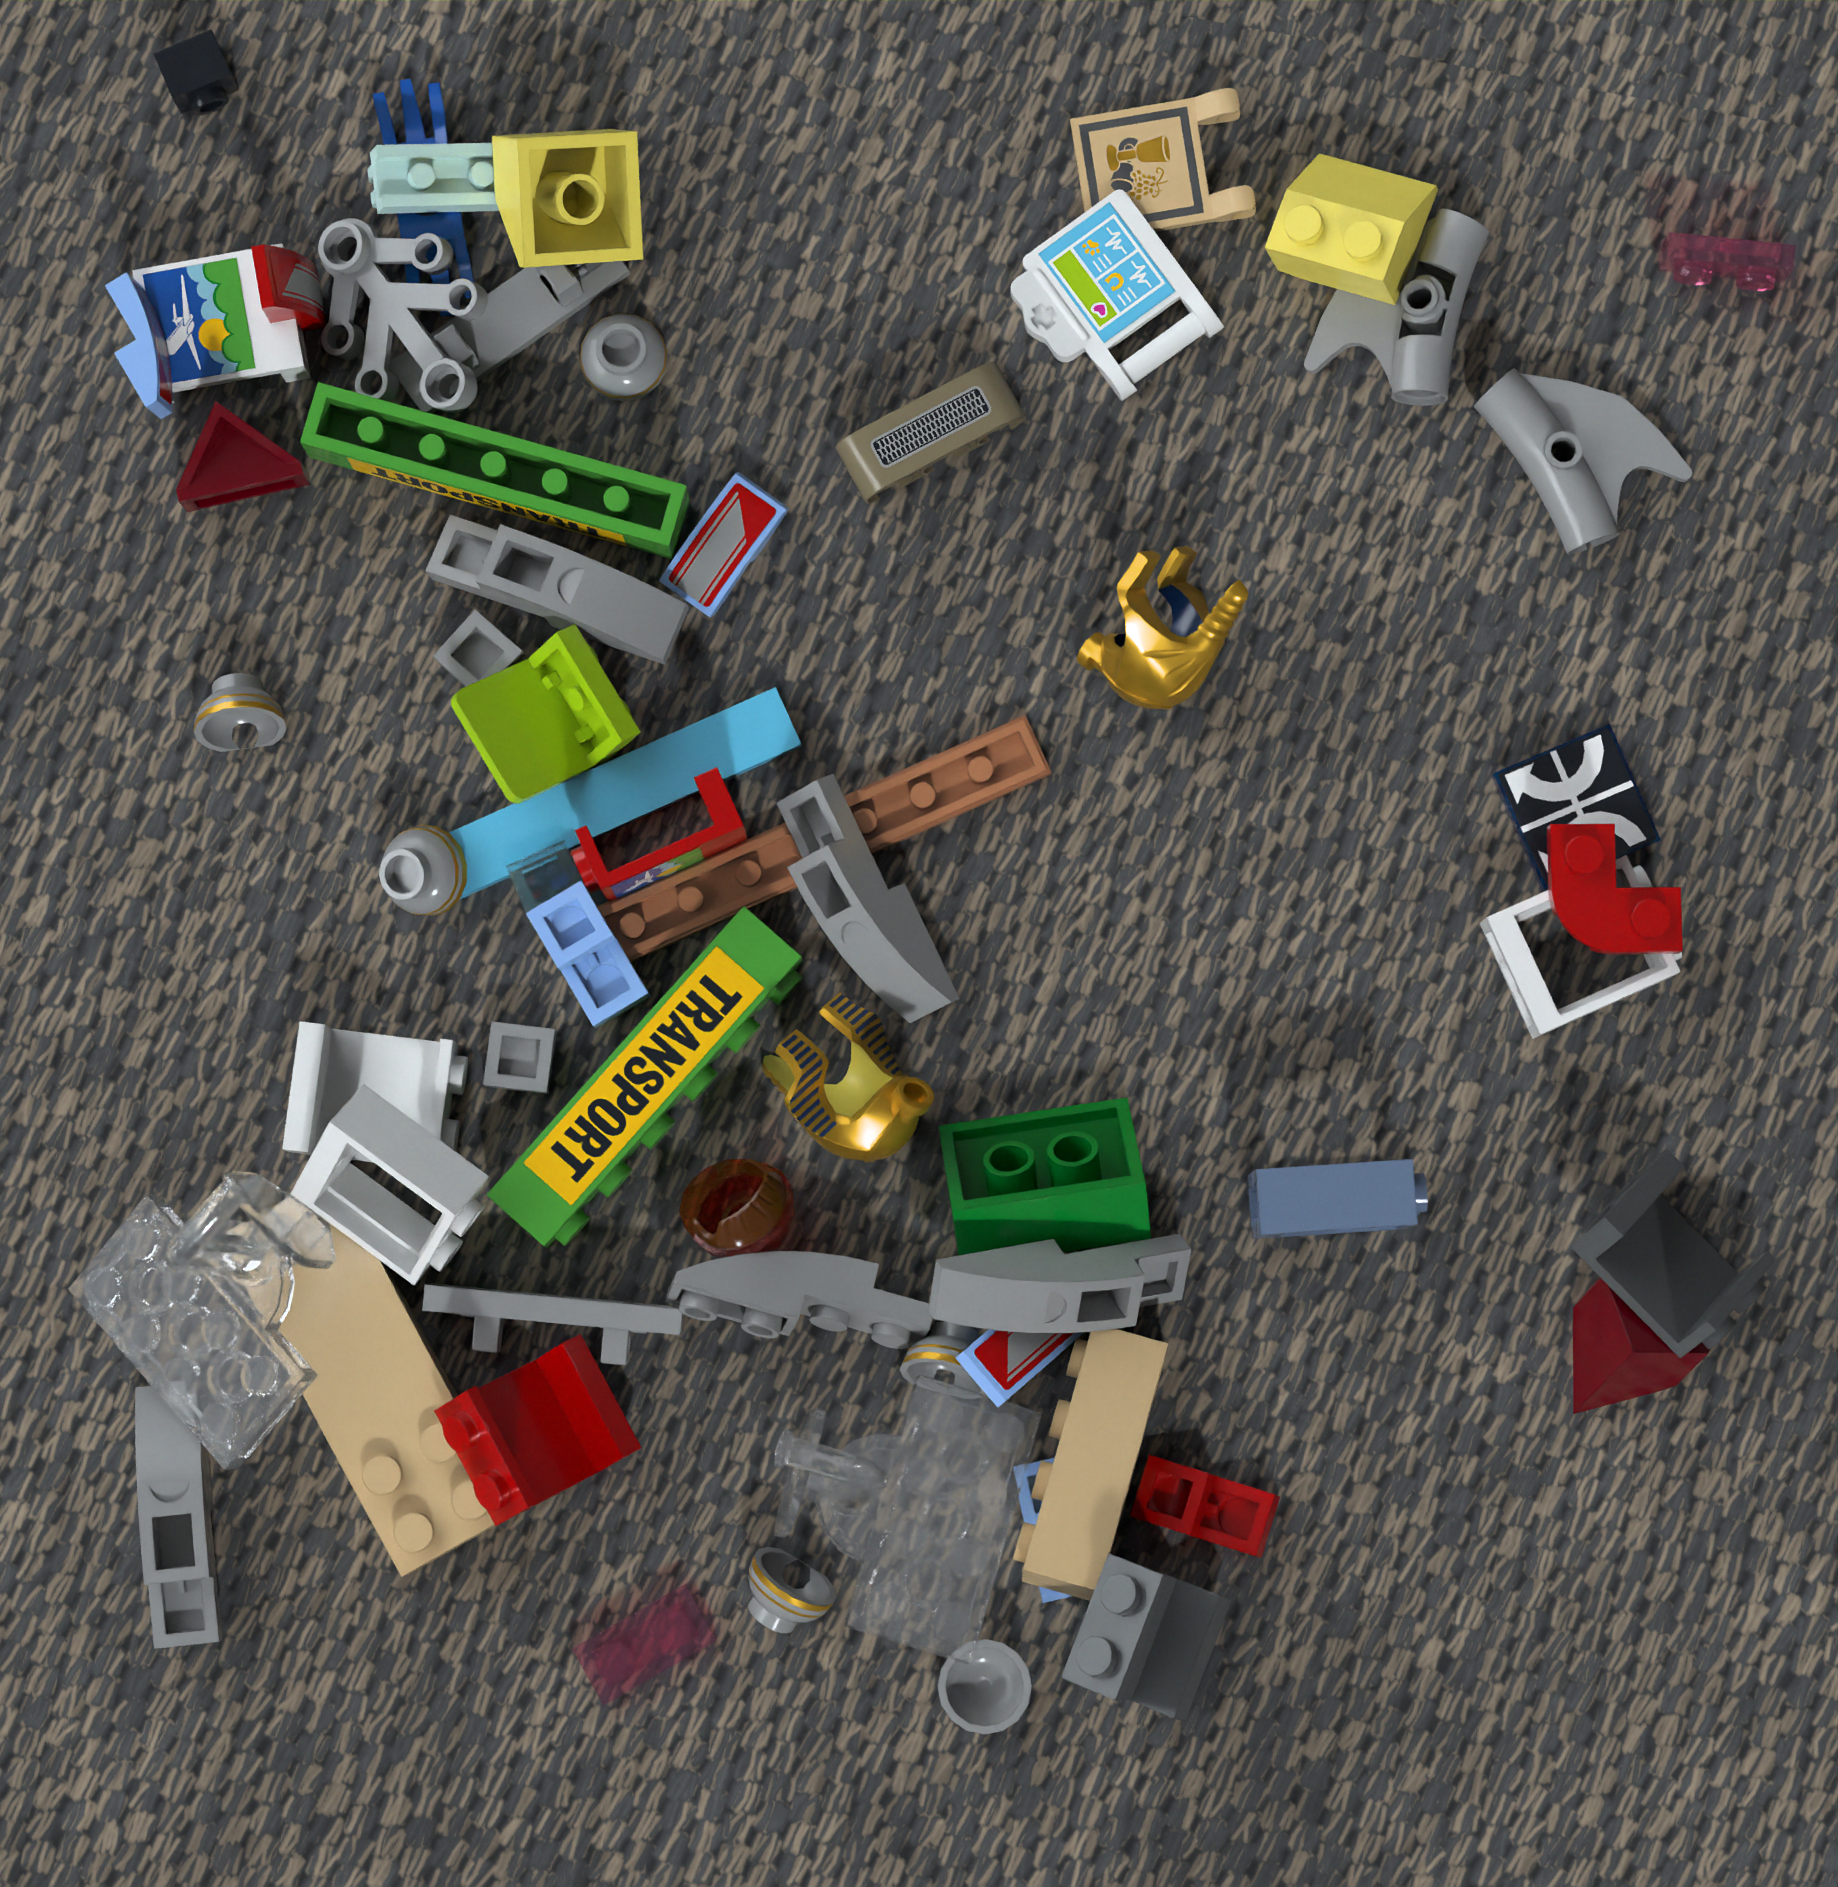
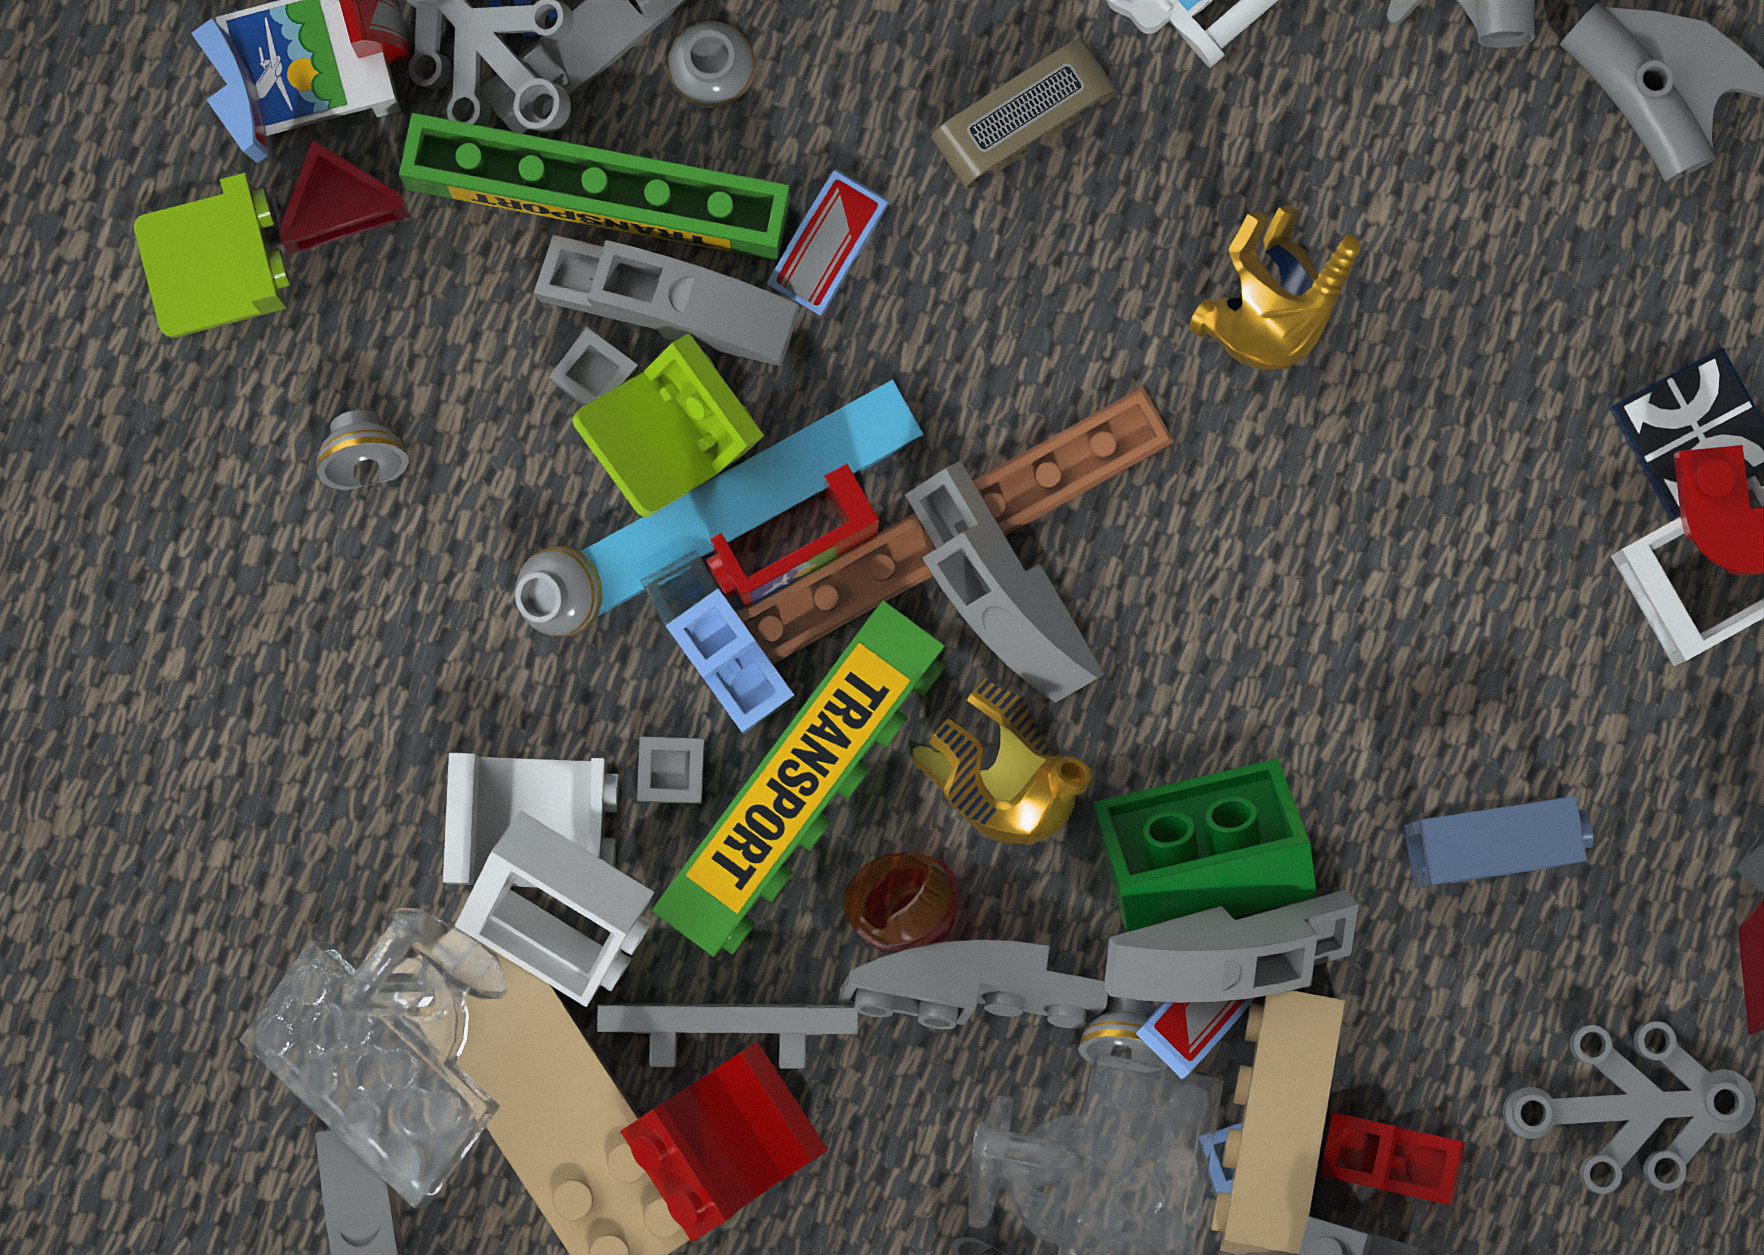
camera: 10 degrees left, 0 degrees up
(109, 511) = (212, 260): none -> lime bracket
(1459, 1475) = (1641, 1105): none -> light grey plant

